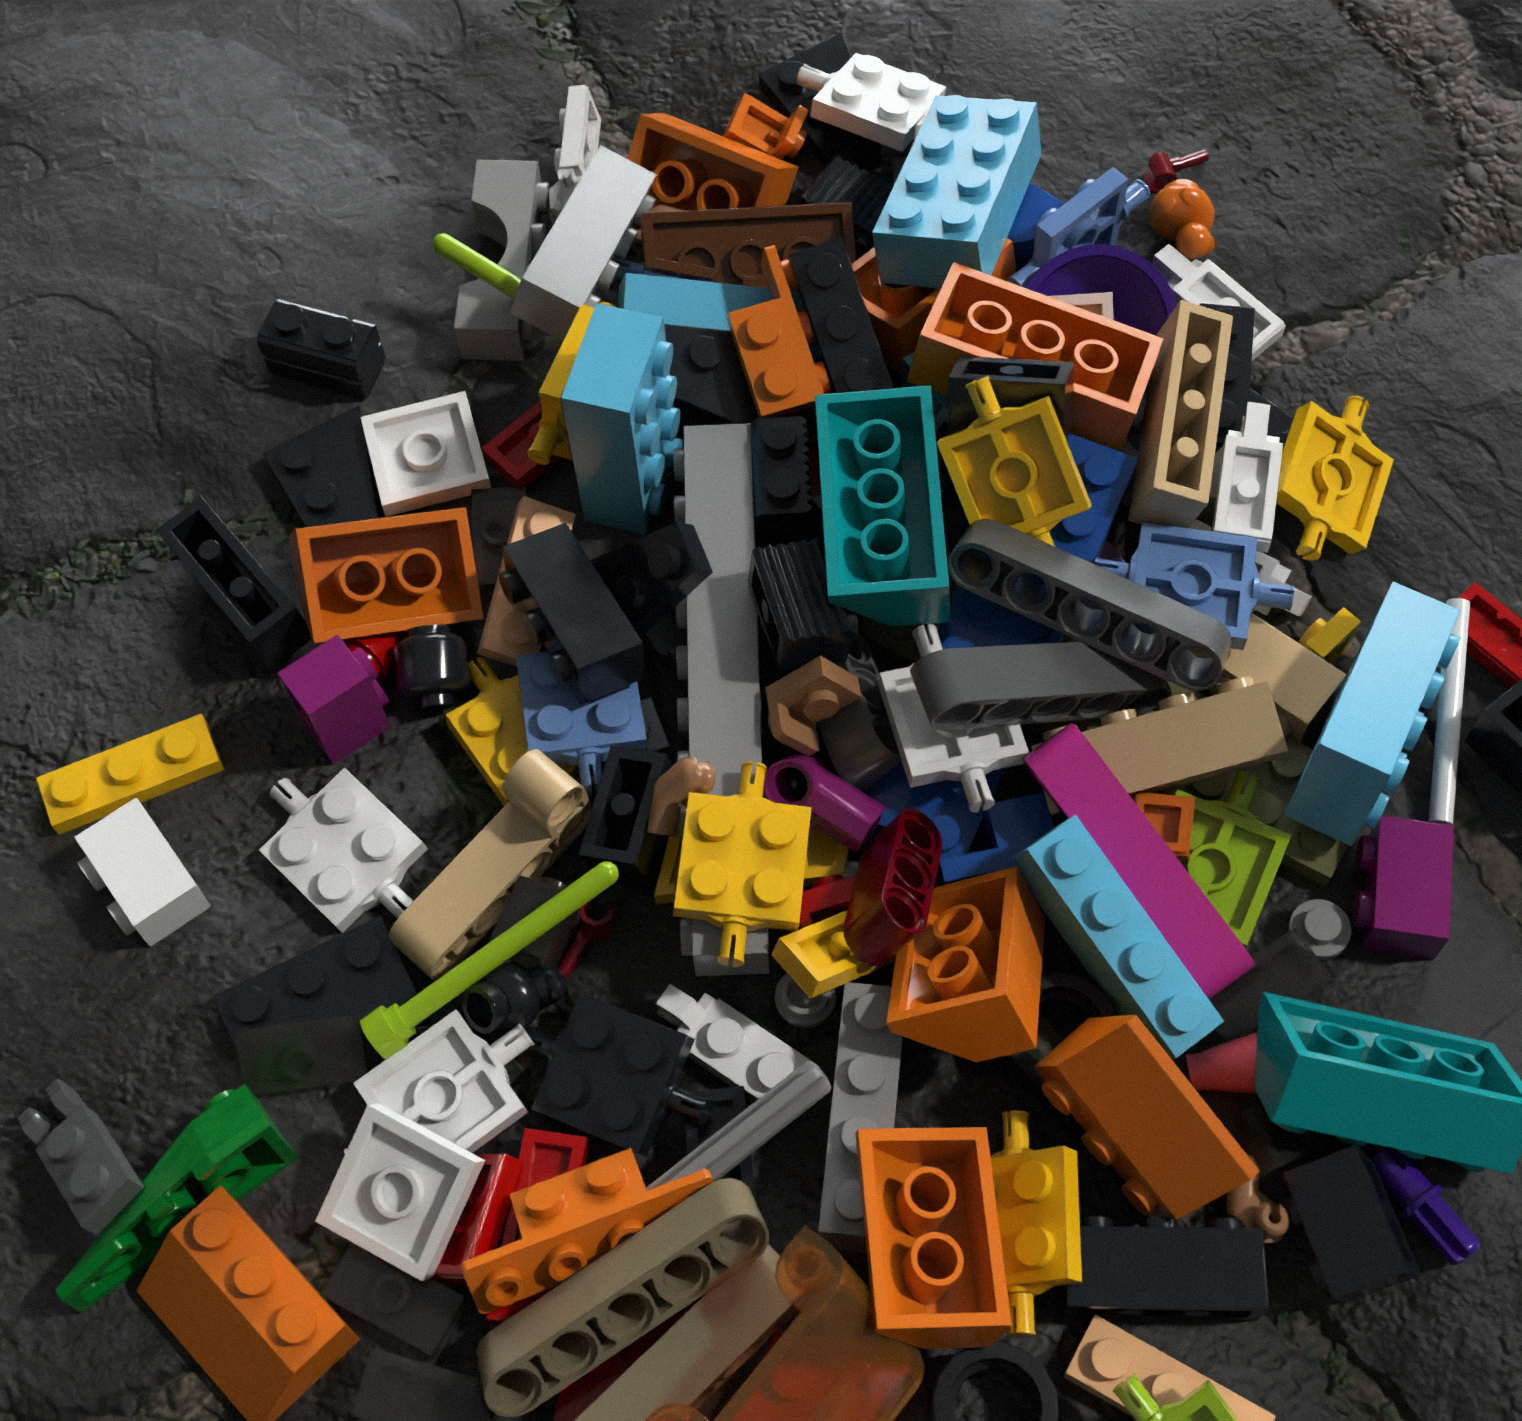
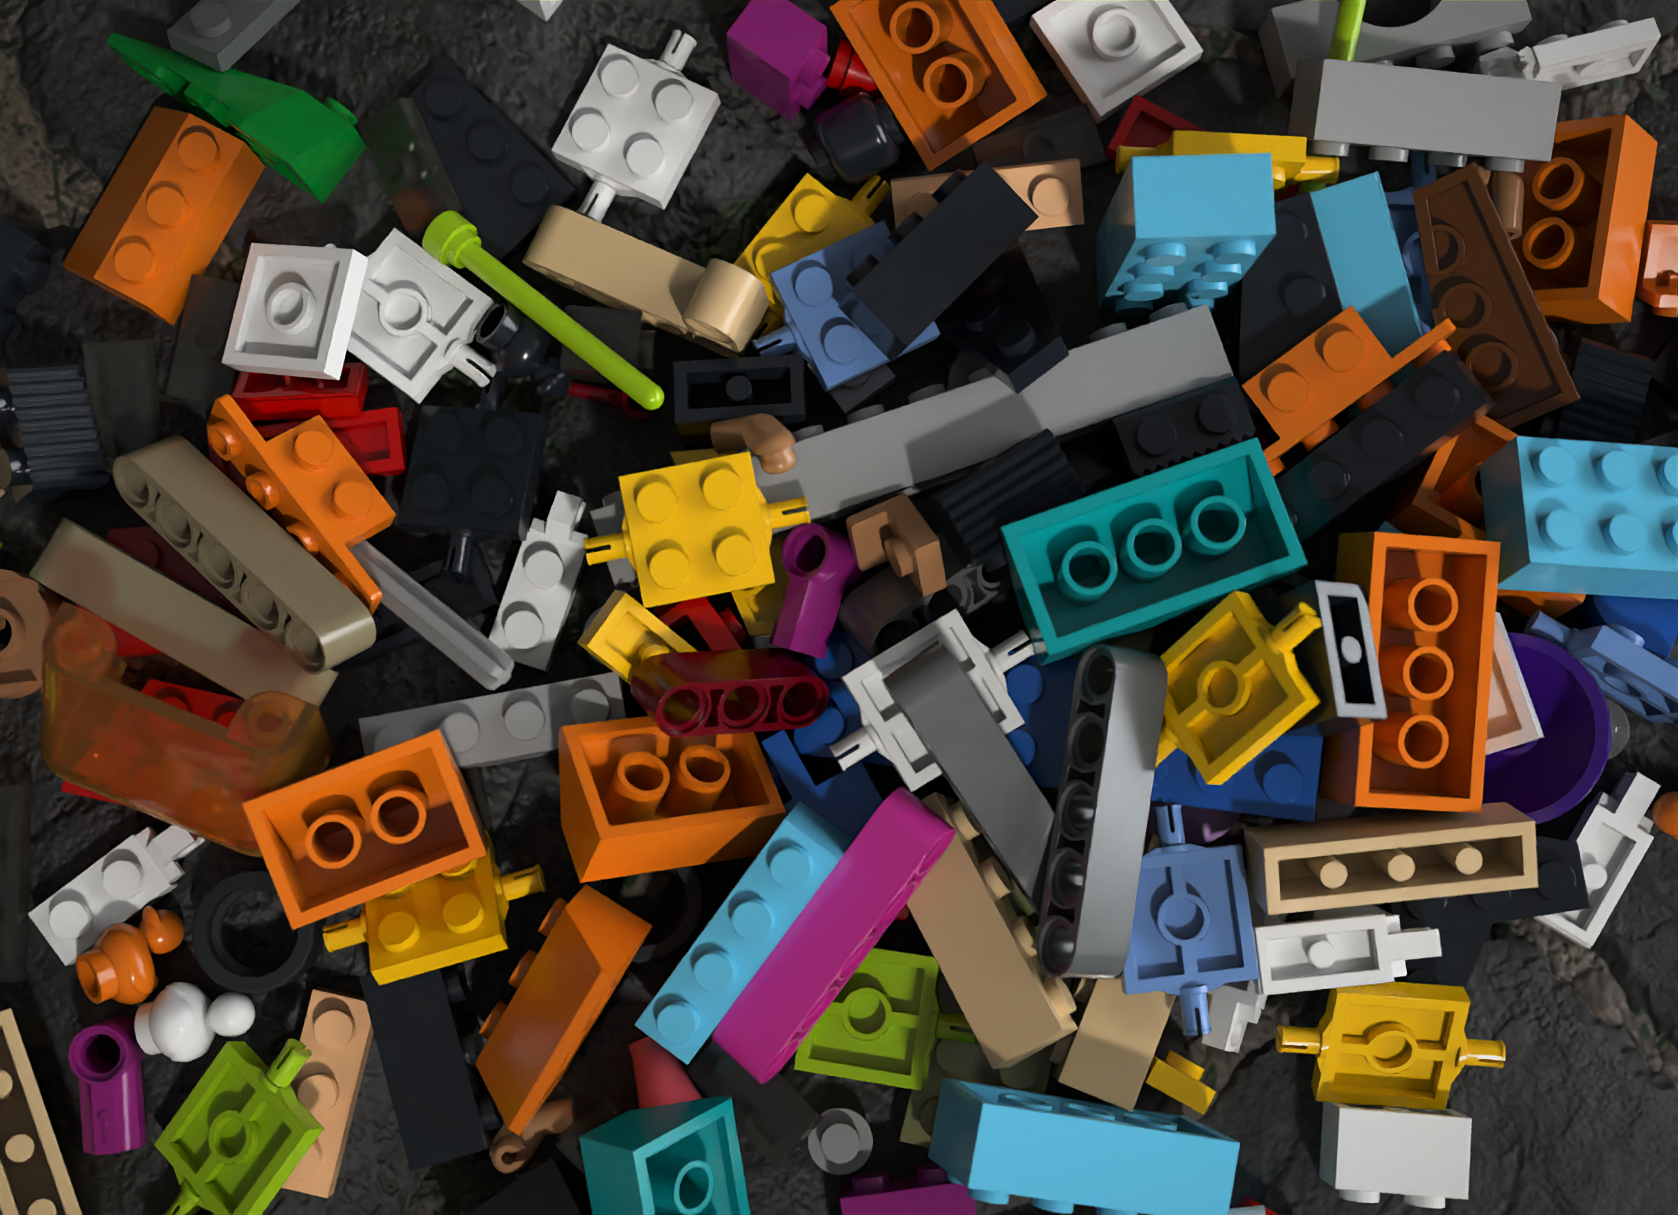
camera: 65 degrees right, 20 degrees up
(1171, 818) = (897, 956): orange tile -> none
(1420, 501) = (1395, 1152): none -> white brick

